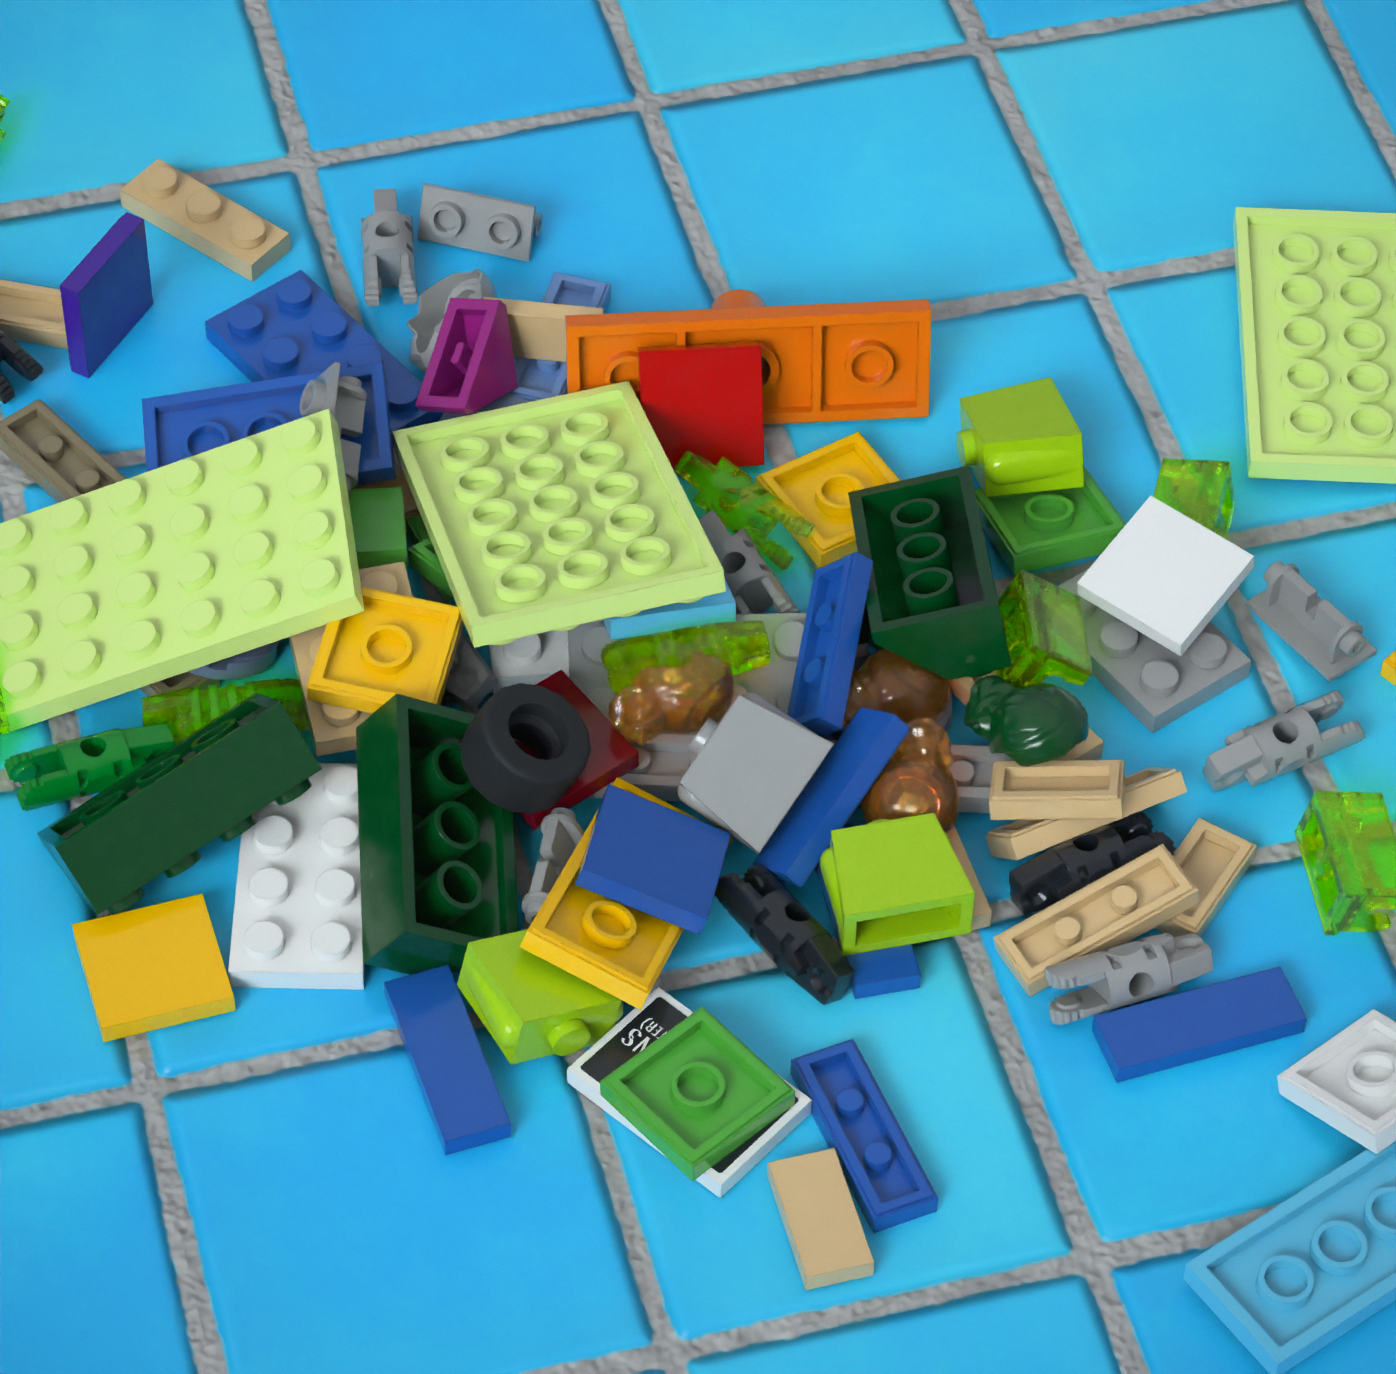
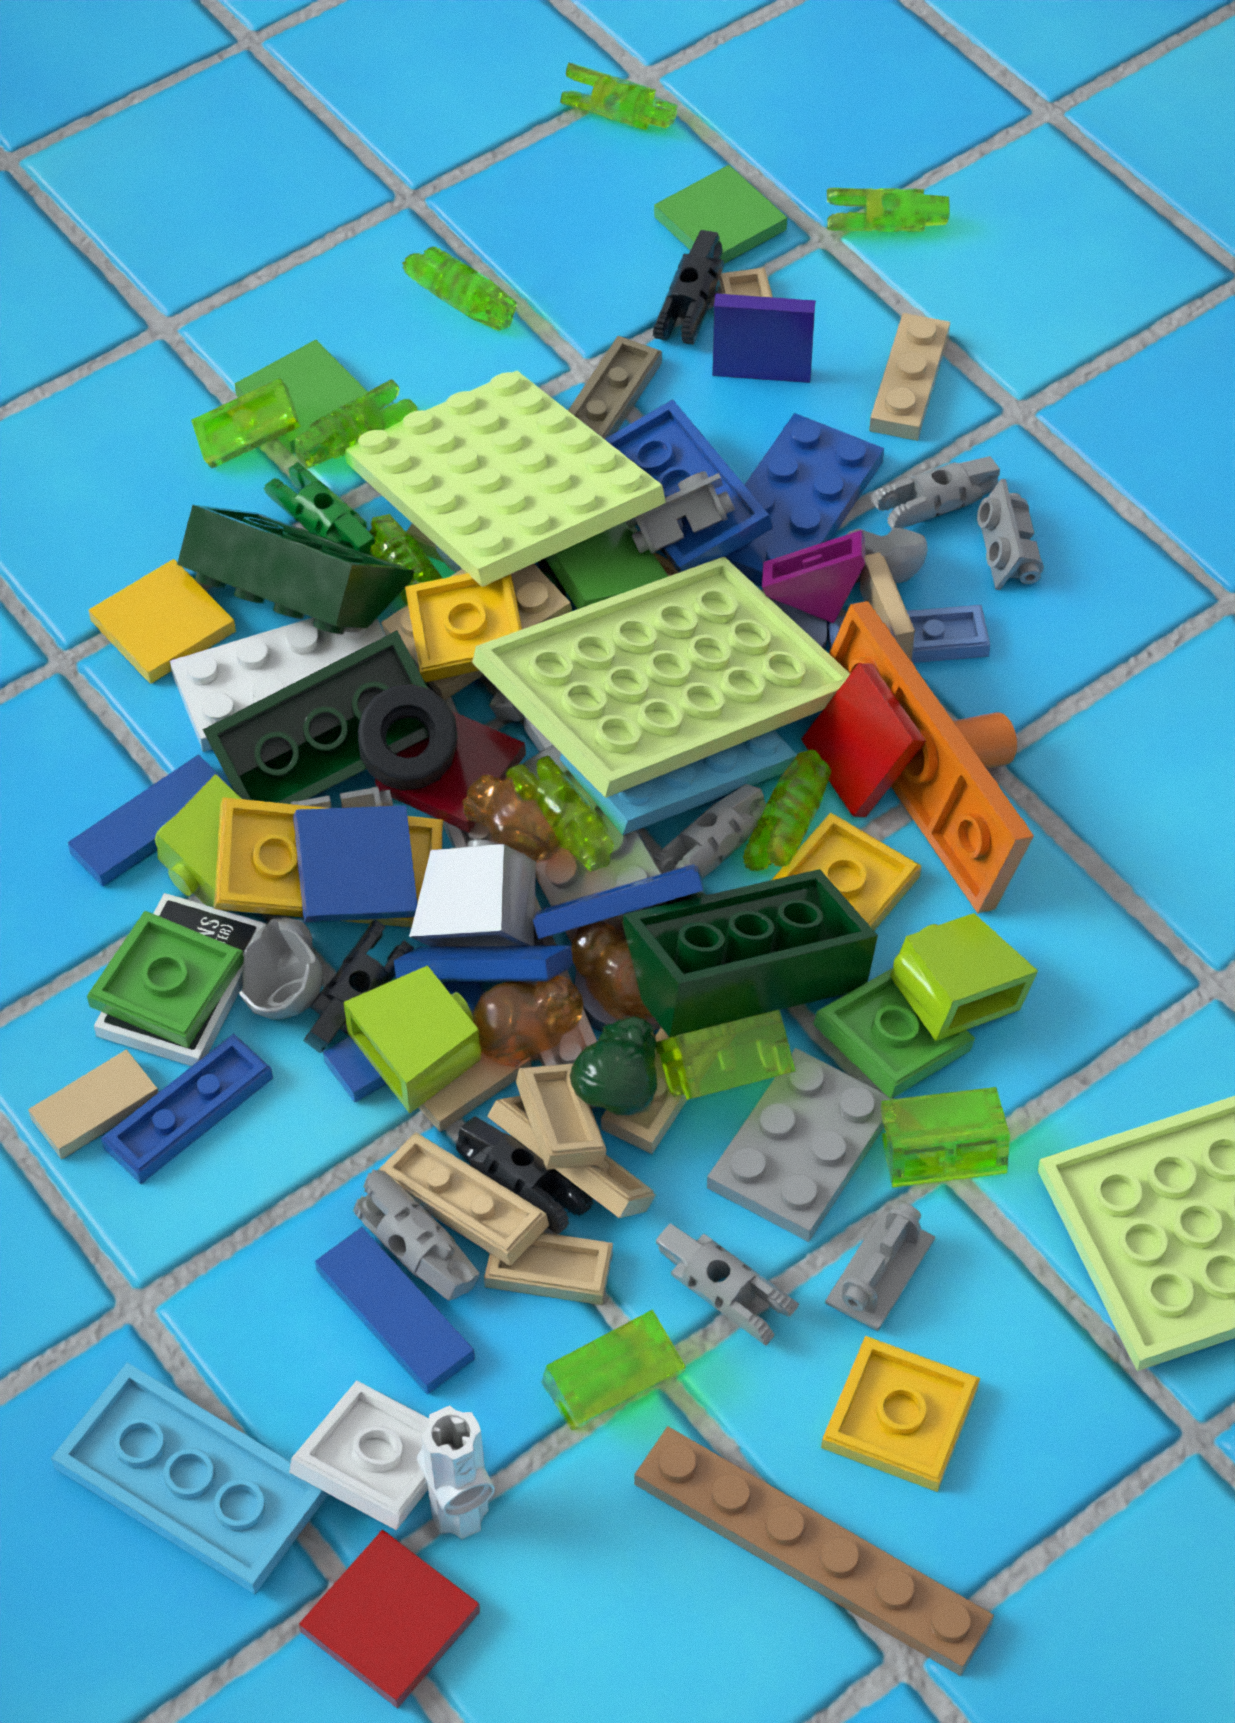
camera: 70 degrees right, 5 degrees up
(741, 981) = (281, 970): none -> light grey hair
(1165, 575) = (837, 1121): white tile -> none

